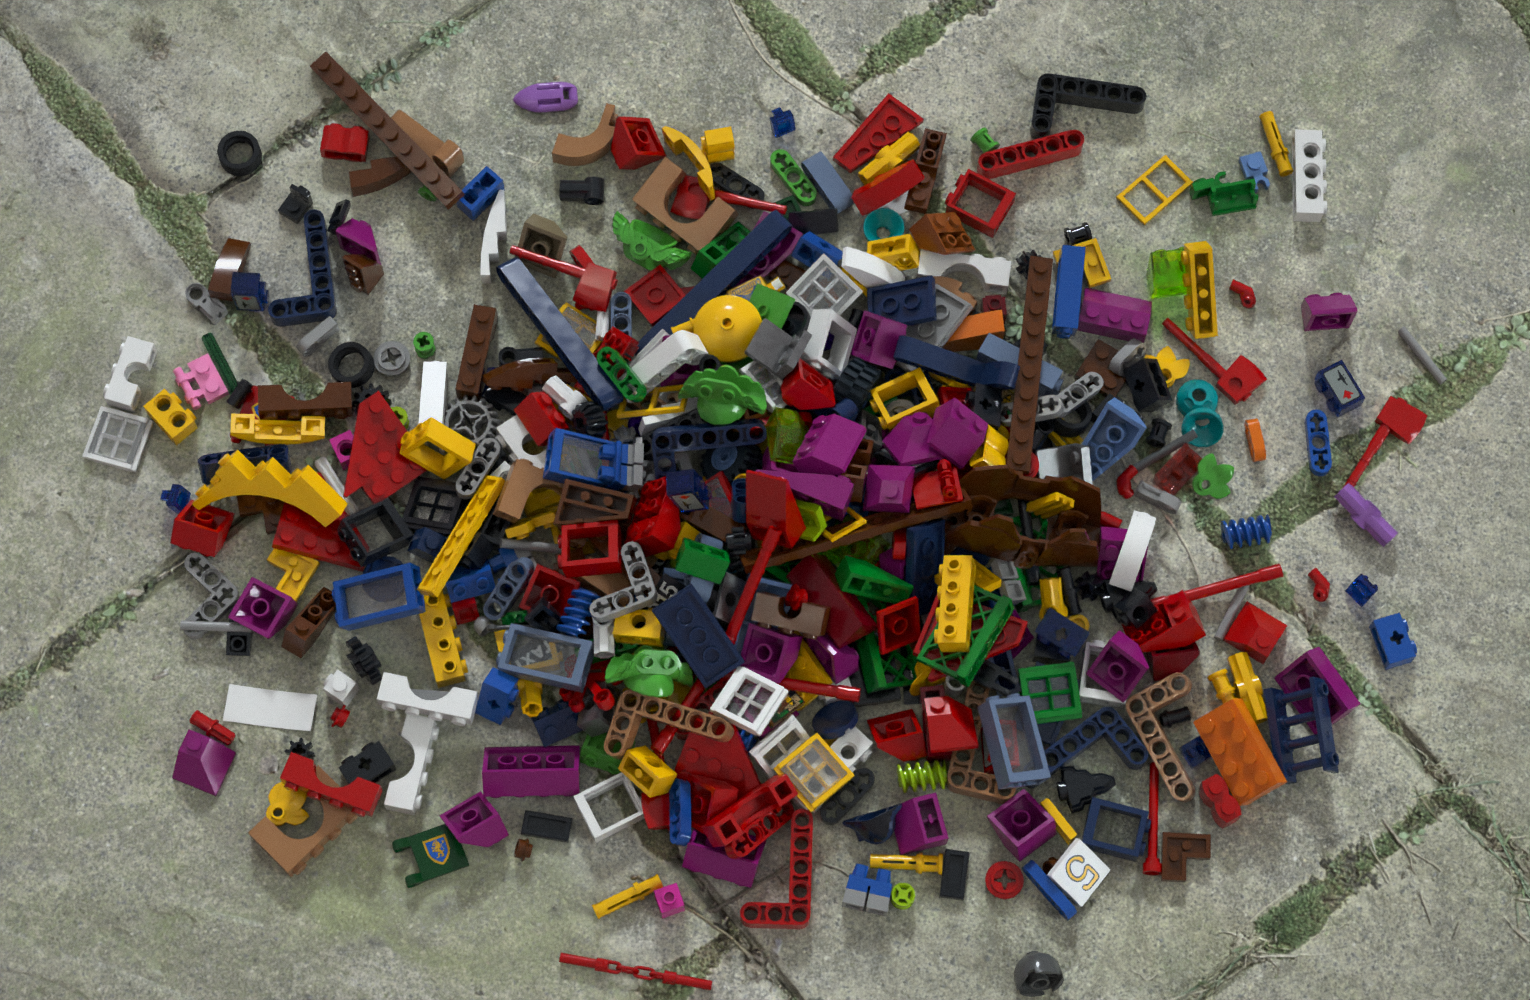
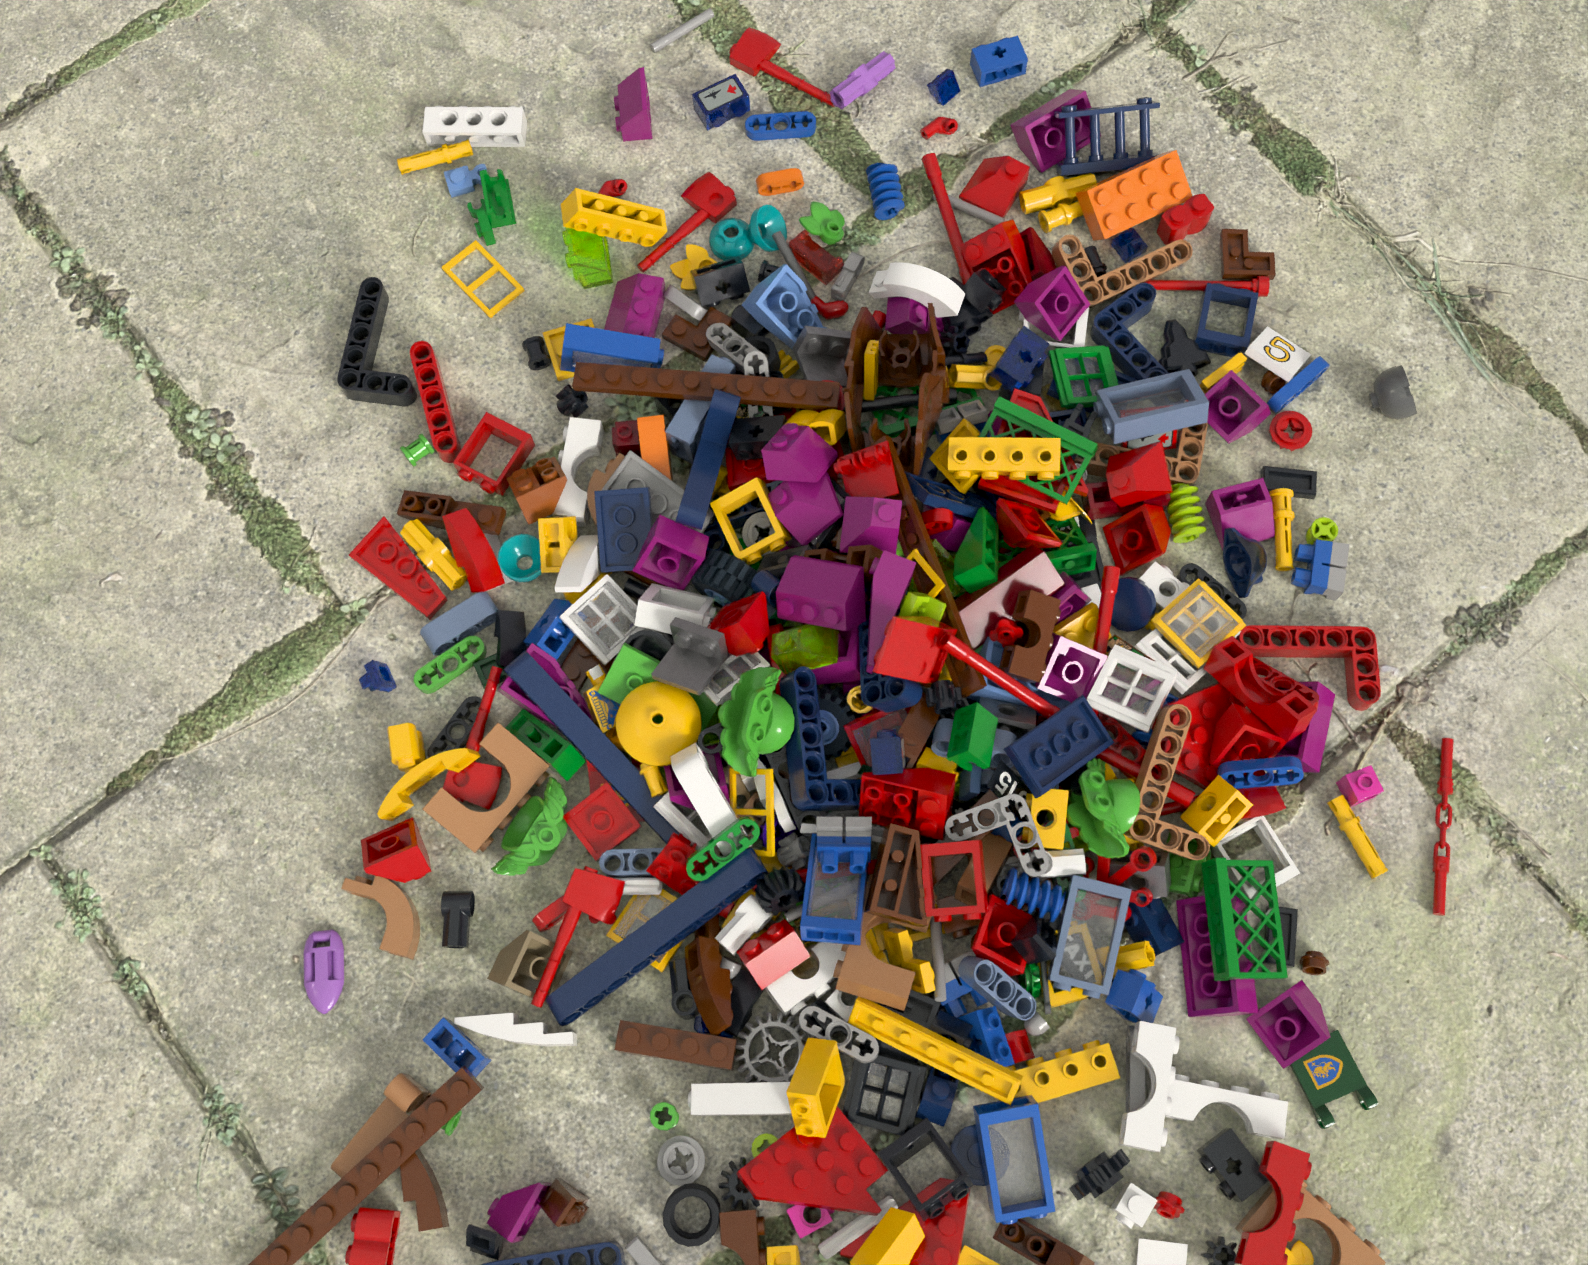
camera: 85 degrees left, 0 degrees up
(550, 764) = (1222, 926): none -> green fence

